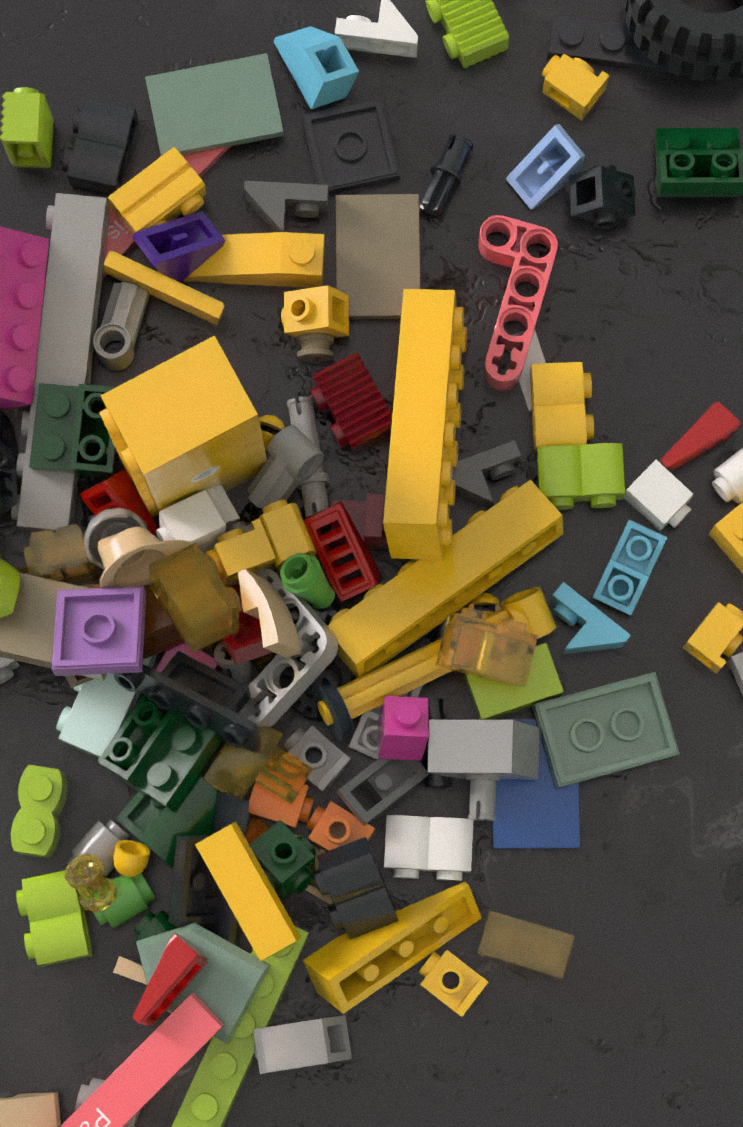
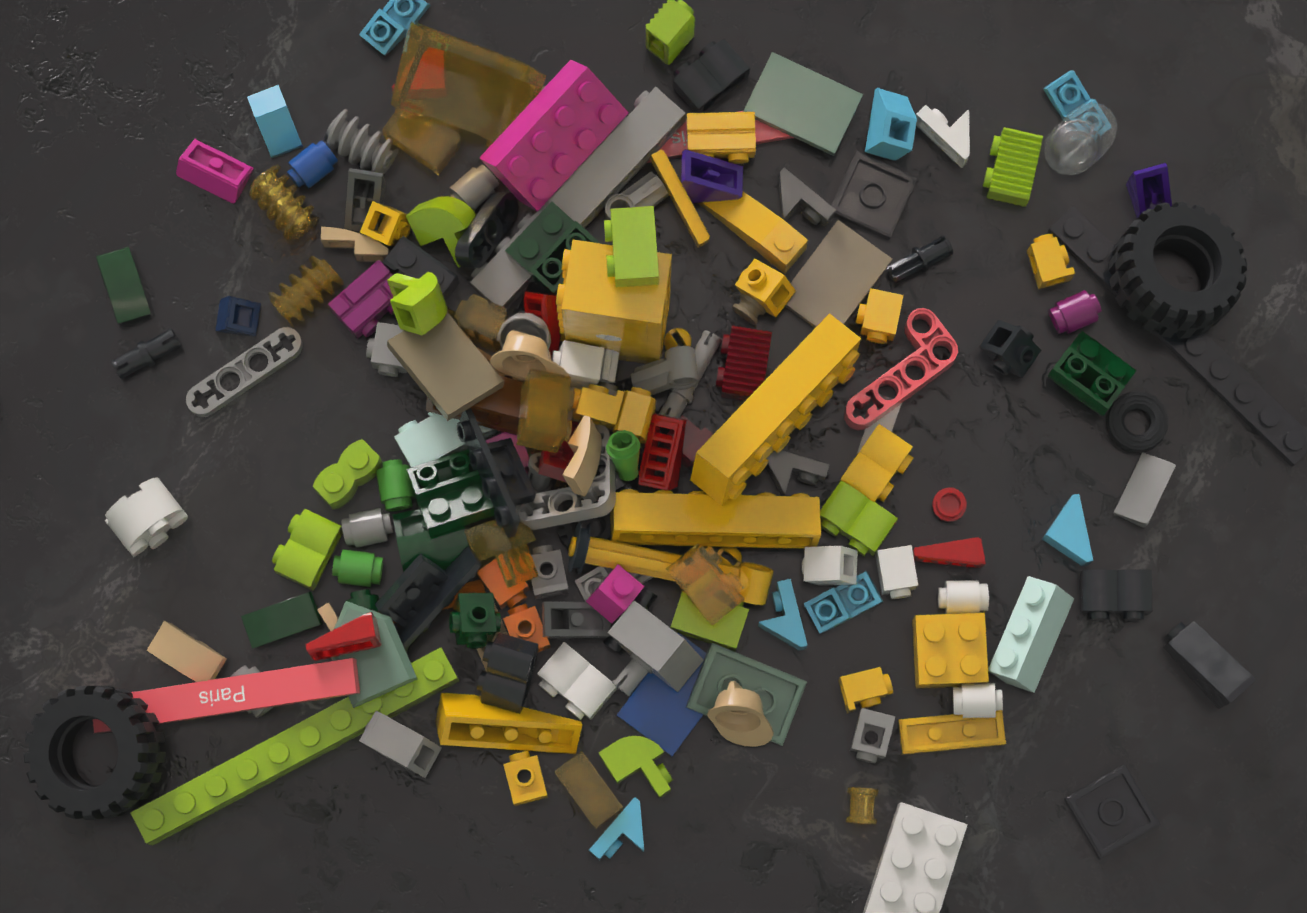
camera: 35 degrees right, 0 degrees up
(79, 880) = (343, 541): clear yellow bush -> none
(83, 1010) = (281, 619): none -> dark green slope
(95, 787) = (395, 486): none -> bright green brick
(99, 631) = (468, 387): medium lavender tile -> none
(130, 857) = (382, 546): yellow hinge -> none
(171, 355) = (634, 246): none -> lime brick
(248, 891) = (437, 621): yellow tile -> none
(450, 258) = (880, 315): none -> yellow brick
(543, 872) = (635, 754): none -> lime brick
(546, 167) = (988, 303): light blue slope -> none
(588, 948) = (627, 823): none -> medium azure slope
(590, 540) = (830, 565): none -> white brick
(621, 755) = (741, 717): none -> tan piece
(636, 115) = (1075, 312): none -> magenta brick
(658, 393) = (949, 504): none -> red plate

